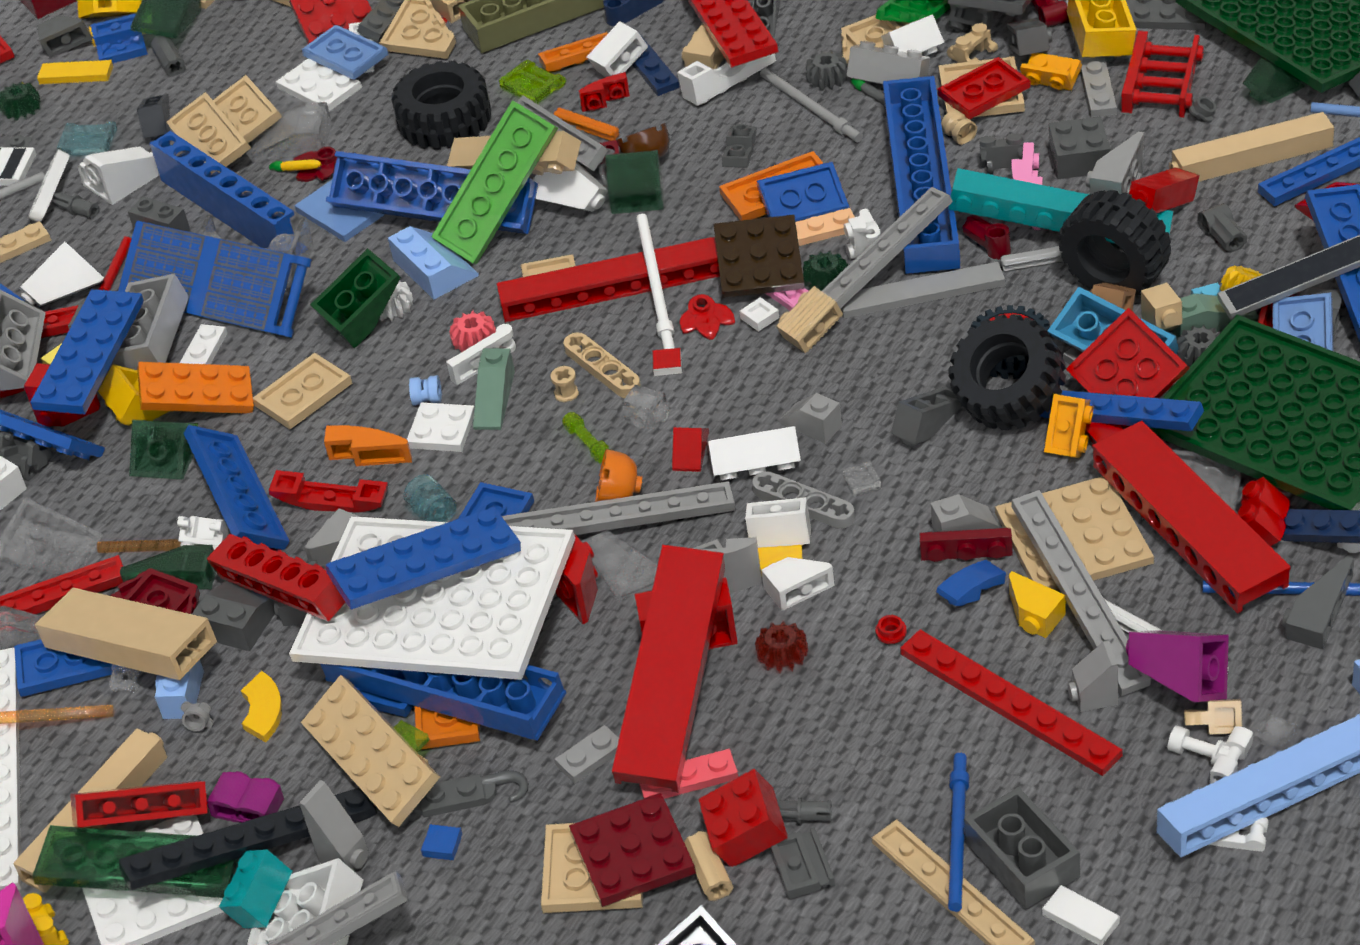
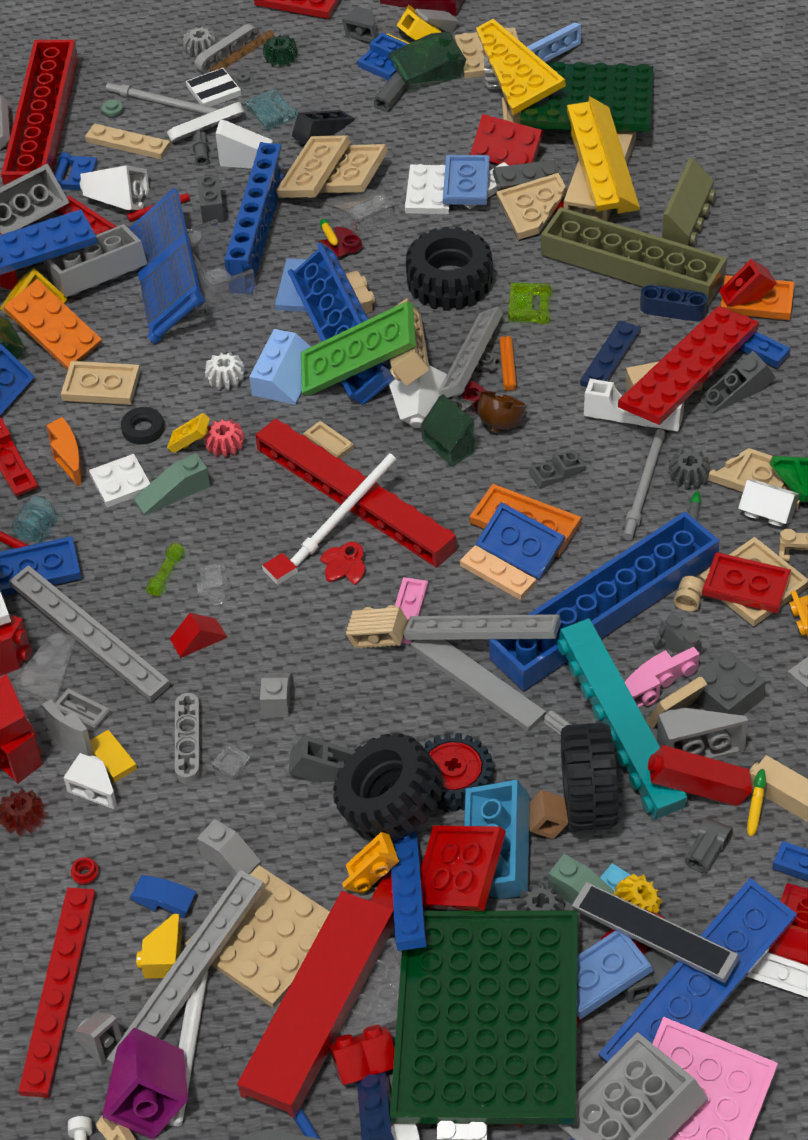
camera: 50 degrees right, 5 degrees up
(75, 72) = (338, 58): yellow tile -> none
(205, 344) = (104, 305): white plate -> none
(357, 298) = (193, 352): dark green slope -> none
(386, 372) = (142, 436): none -> black tyre
(425, 390) = (145, 448): light blue wheel -> none
(445, 346) = (188, 433): none -> yellow plate
(466, 363) = (213, 458): white plate -> none
(564, 378) = (206, 518): tan bush -> none
(569, 54) = (584, 307): orange plate -> none
(599, 367) = (245, 532): tan beam -> none
(608, 88) = (545, 348): red slope -> none
(617, 50) = (595, 329): white brick -> none
(617, 477) = (121, 611): orange cylinder -> none
(754, 452) = (213, 676): white slope -> none
(758, 256) = (419, 554): dark brown plate -> none
(759, 314) = (369, 593): white plate -> none
(779, 522) = (139, 735): white brick -> none
(822, 269) = (445, 603): clear green gear -> none
(861, 232) = (496, 600): white piece -> none
(885, 63) = (721, 505): light grey brick -> none
(966, 544) = (198, 867): dark red plate -> none
(991, 236) = (567, 693): dark red piece -> none
(1074, 167) = (680, 699): none -> tan tile
(1161, 307) = (543, 851): tan slope -> none
(1198, 165) = (756, 802): none -> yellow piece

